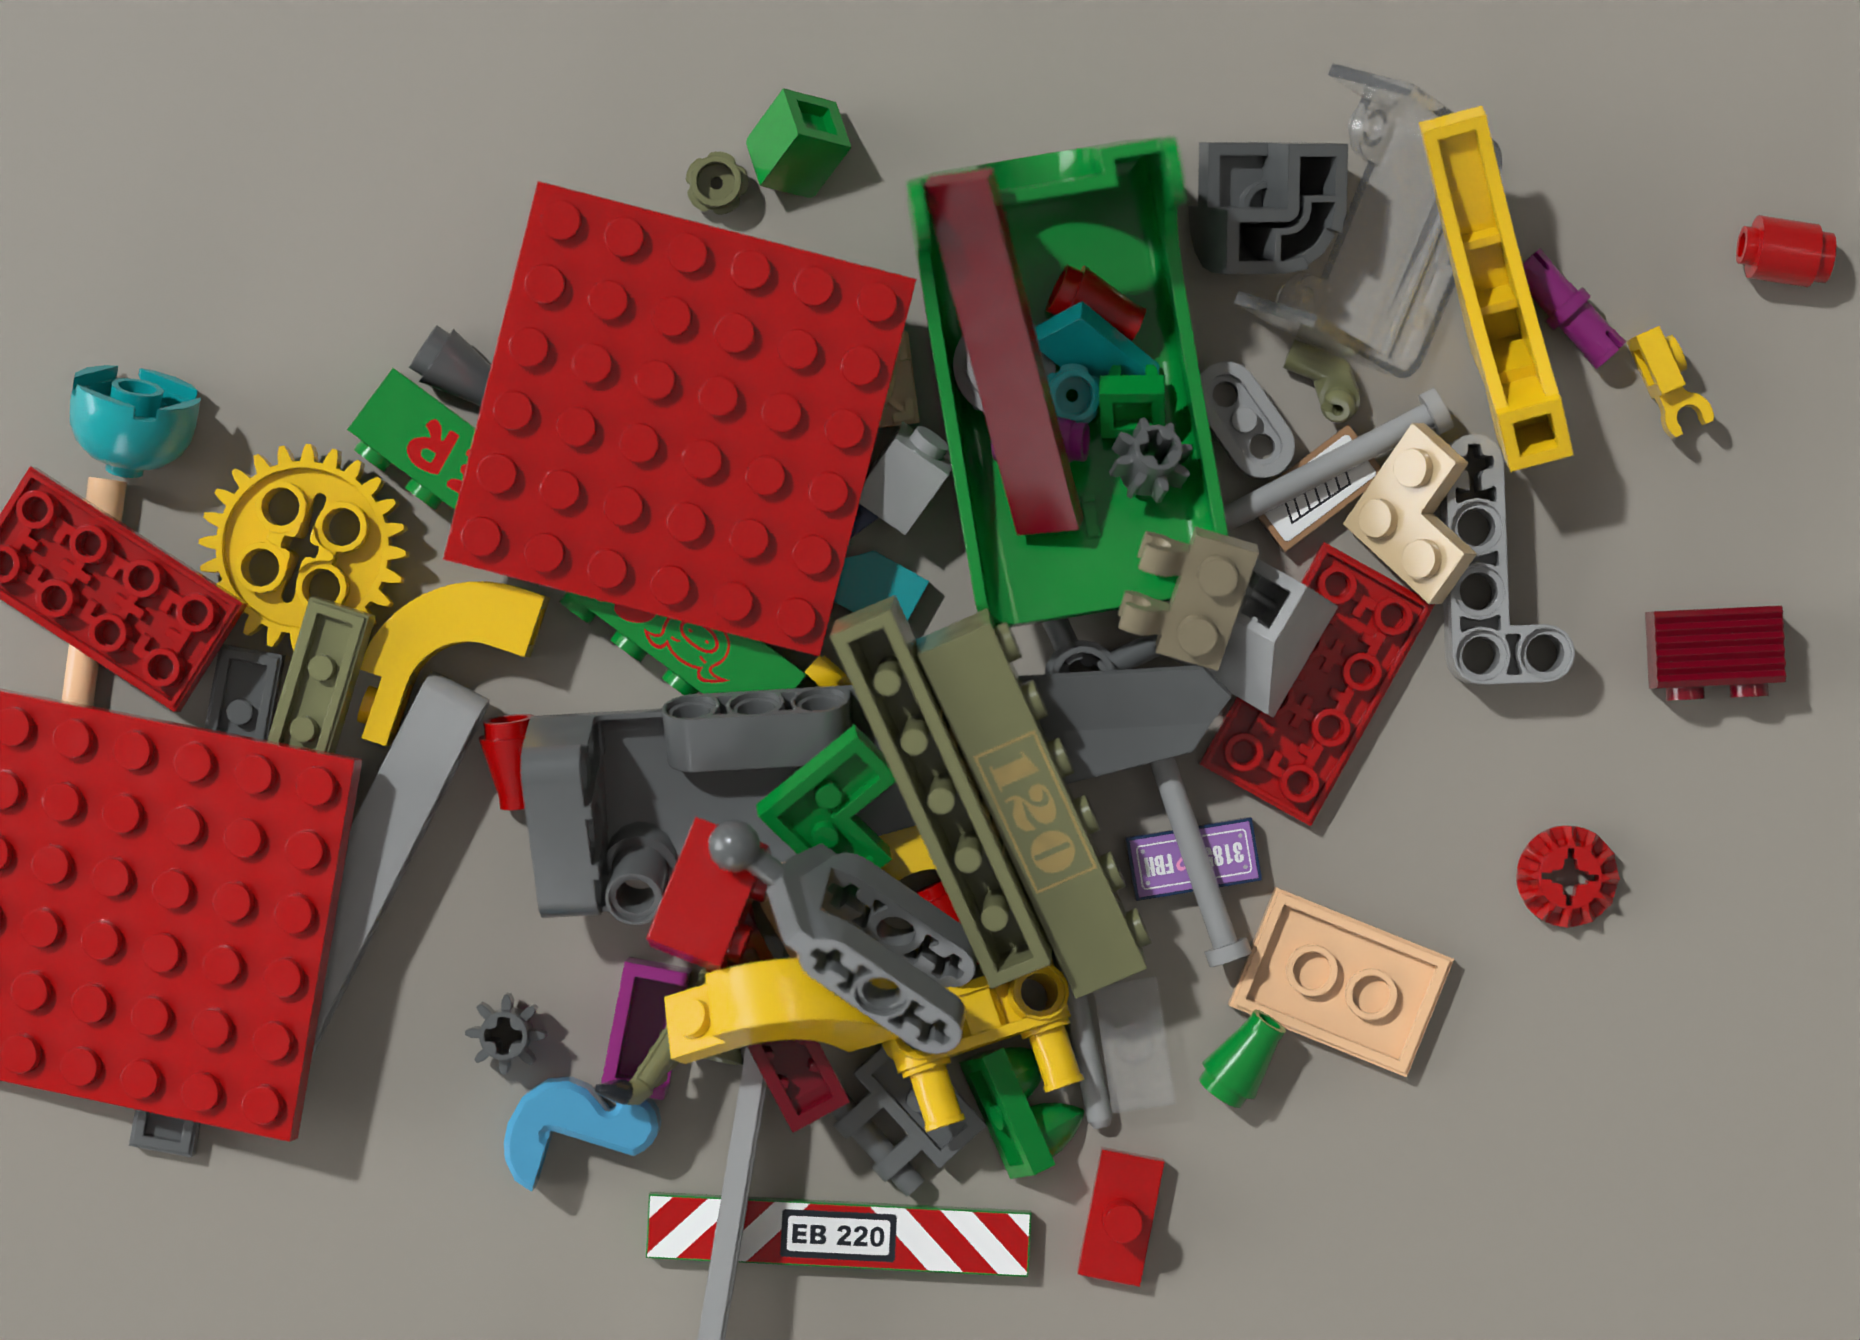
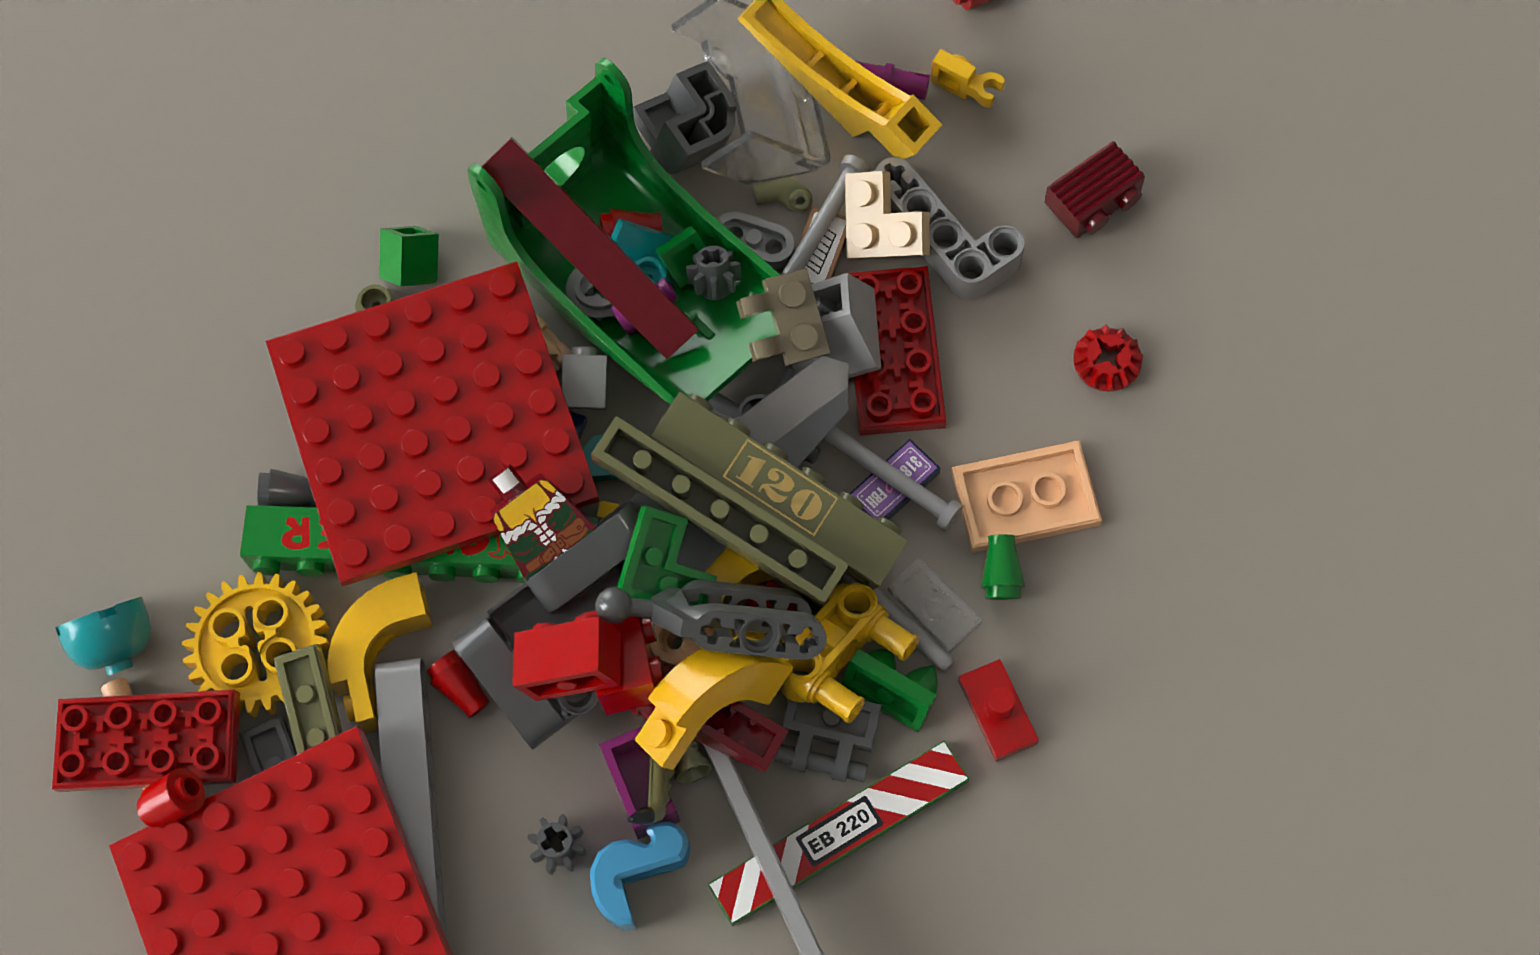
camera: 30 degrees left, 20 degrees down
(92, 692) = (171, 798): none -> red brick
(639, 872) = (567, 658): none -> red brick
(722, 650) = (536, 520): none -> torso

